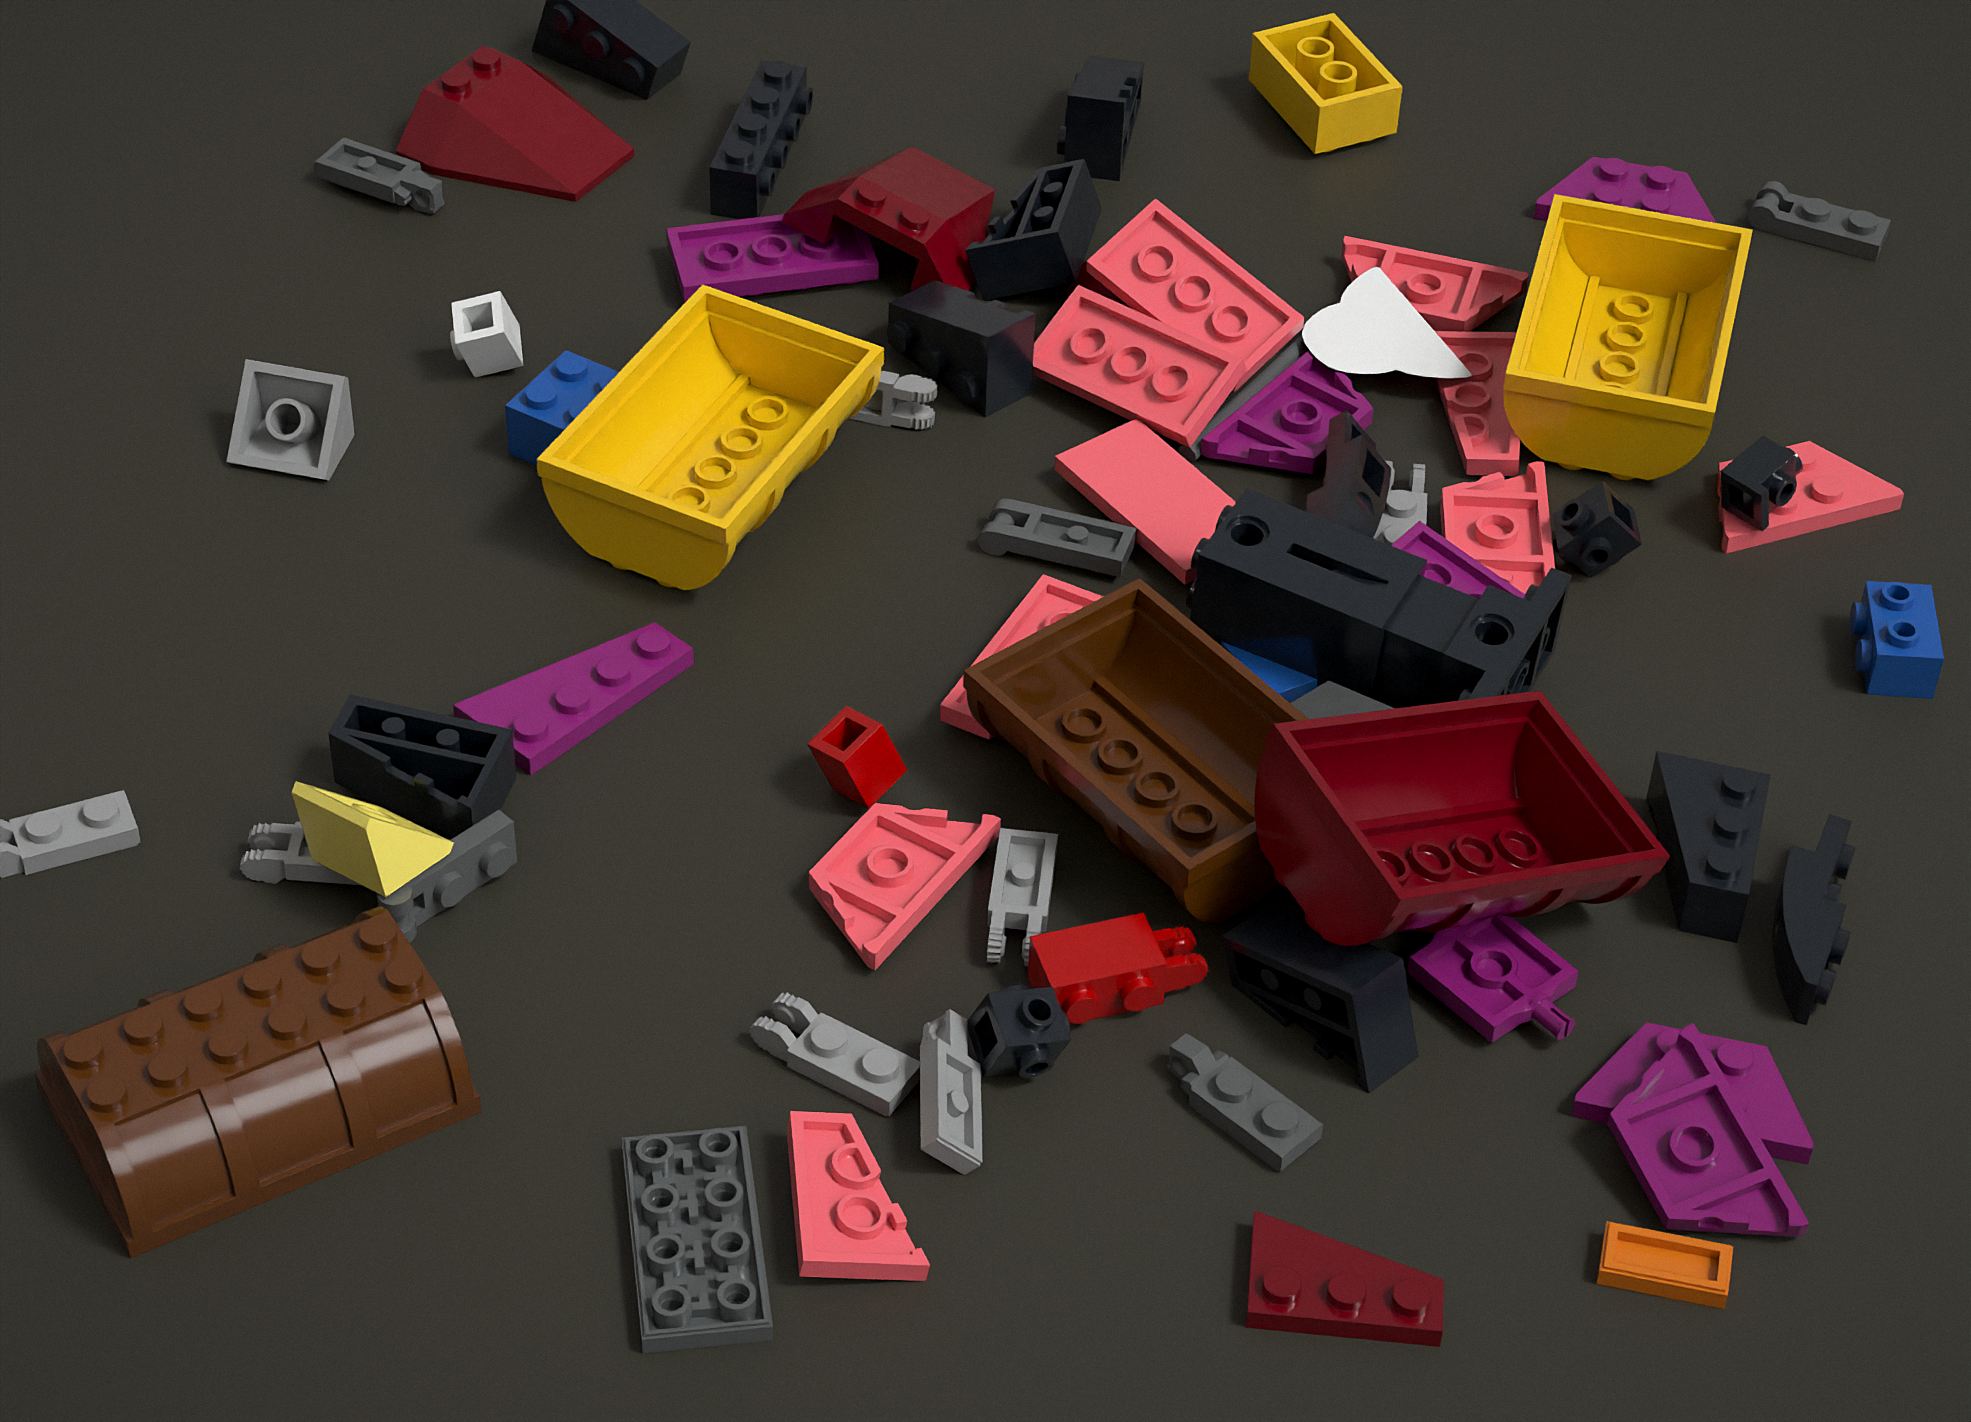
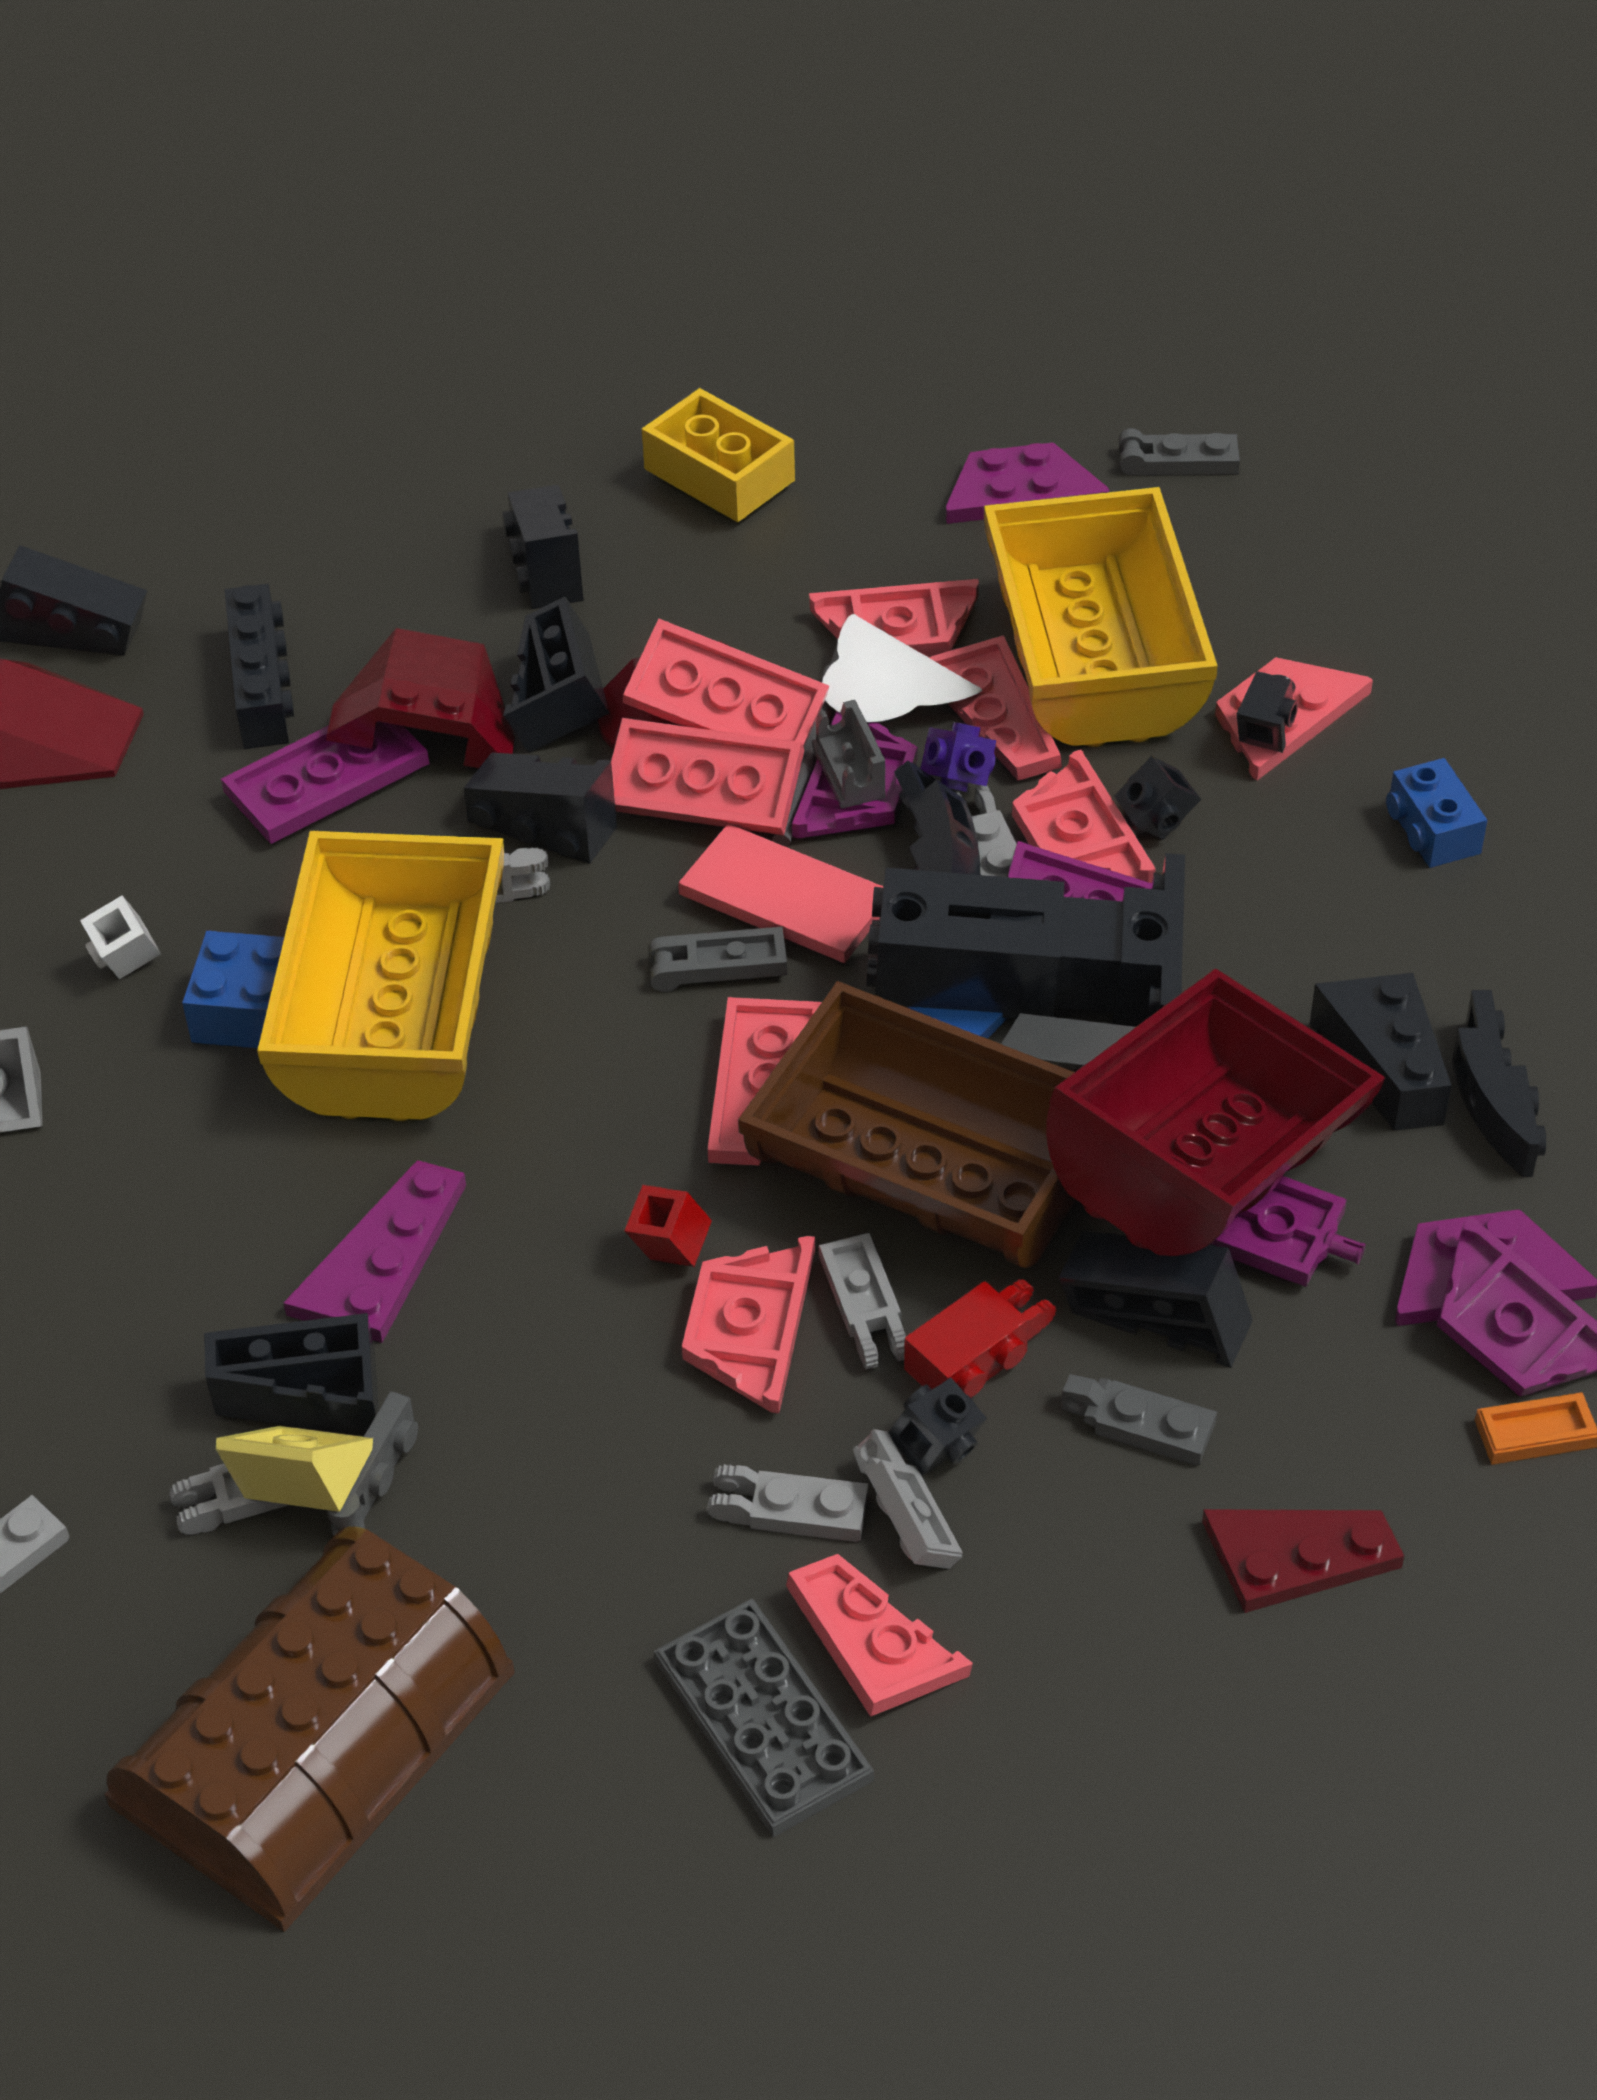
camera: 20 degrees left, 5 degrees up
(1291, 393) = (850, 757): none -> dark grey hinge
(1390, 422) = (959, 756): none -> dark purple brick

